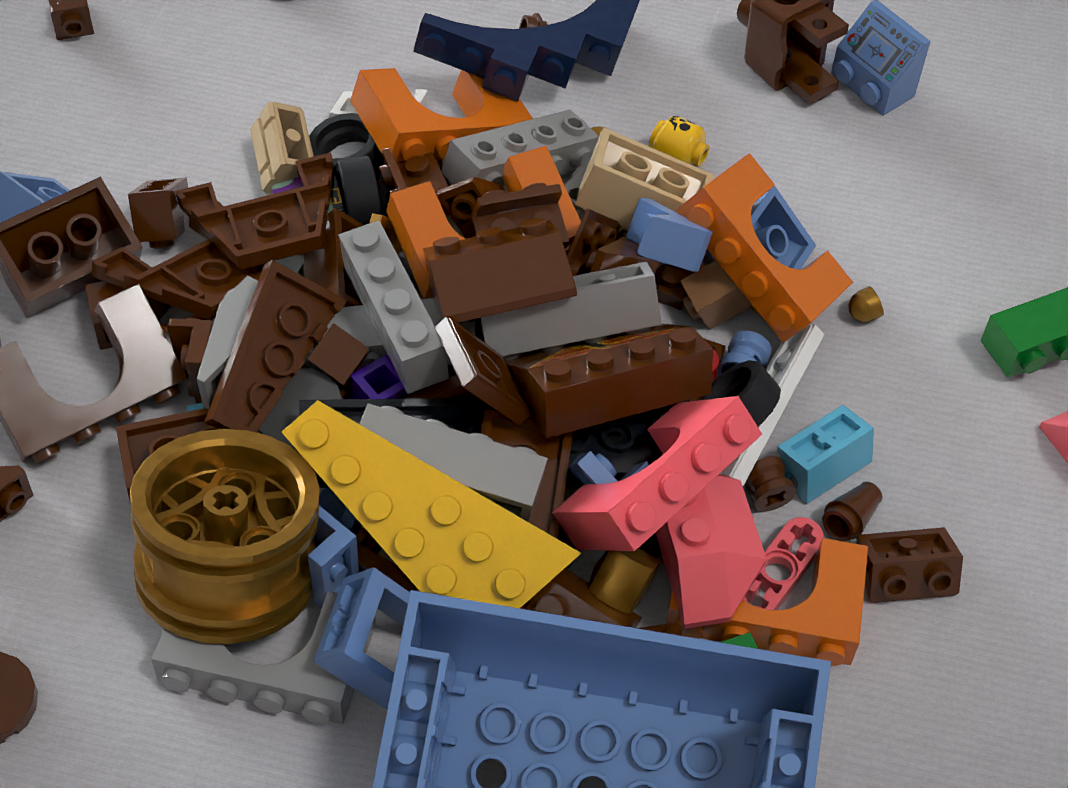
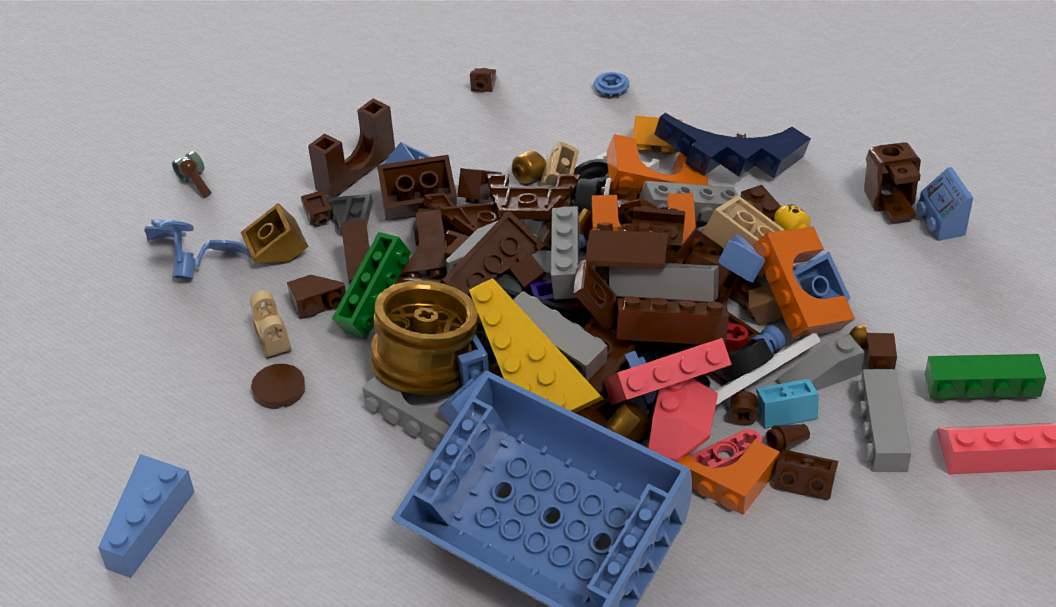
camera: 30 degrees right, 10 degrees down
(79, 459) = (376, 273): none -> green brick
(227, 157) = (528, 167): none -> pearl gold head
(393, 46) = (644, 133): none -> light orange slope
(608, 113) = (762, 200): none -> reddish brown plate
(847, 373) = (828, 364): none -> light grey slope
(910, 327) = (880, 351): none -> reddish brown brick
(973, 437) = (884, 420): none -> light grey brick

